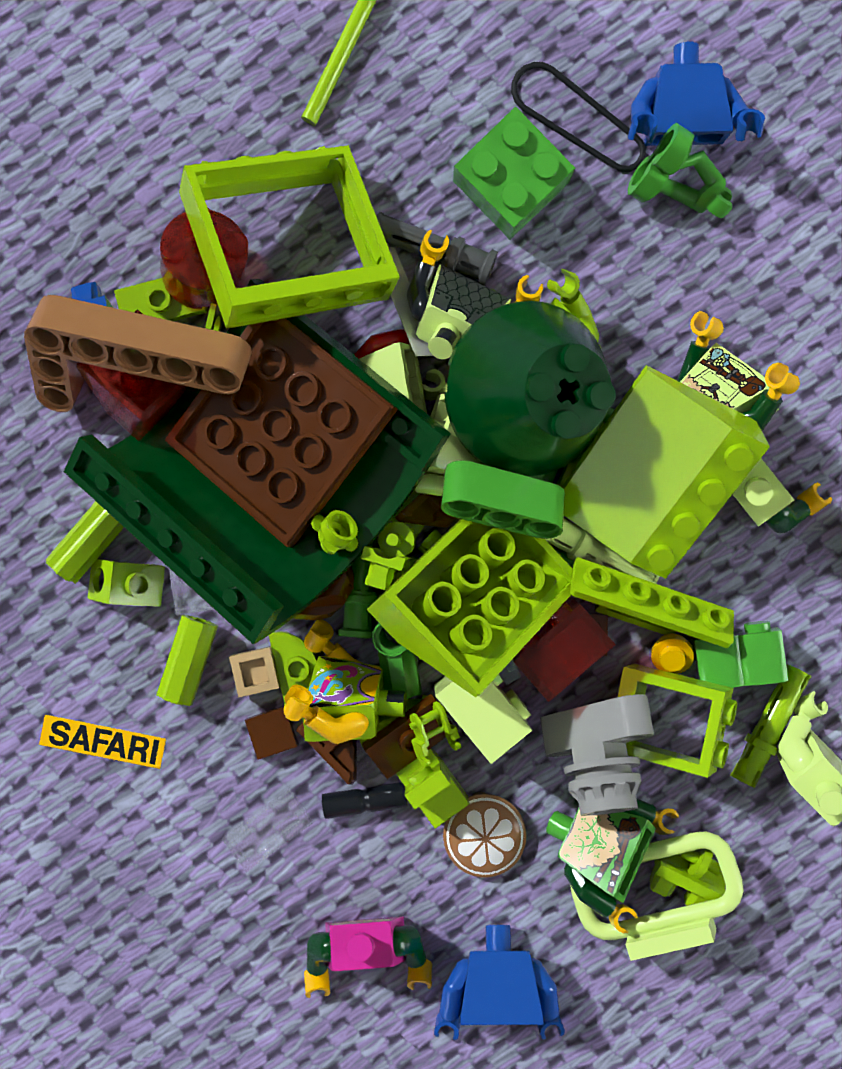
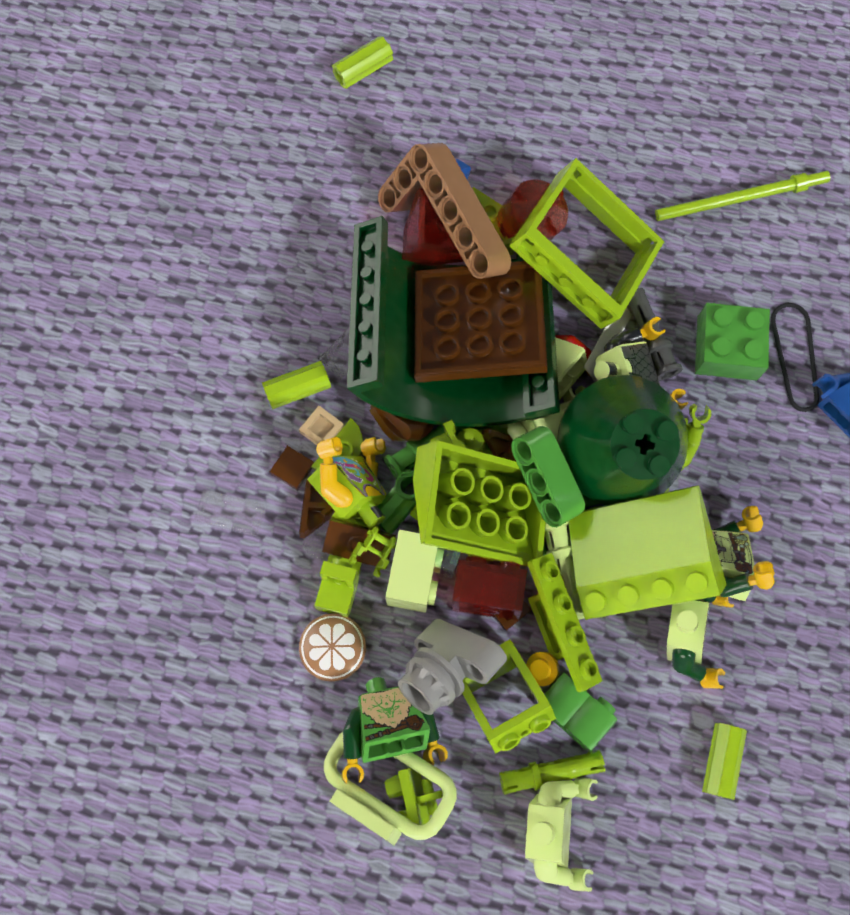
camera: 45 degrees right, 15 degrees down
(84, 543) = (320, 277): lime axle -> none
(102, 741) = (207, 378): sticker -> none
(127, 583) = (314, 318): lime bracket -> none
(336, 531) = (447, 396): lime plate -> none
(358, 801) = (292, 552): black piece -> none
(365, 946) = (206, 623): torso -> none
(499, 989) = (242, 734): blue torso -> none
(671, 156) = (823, 417): bright green piece -> none

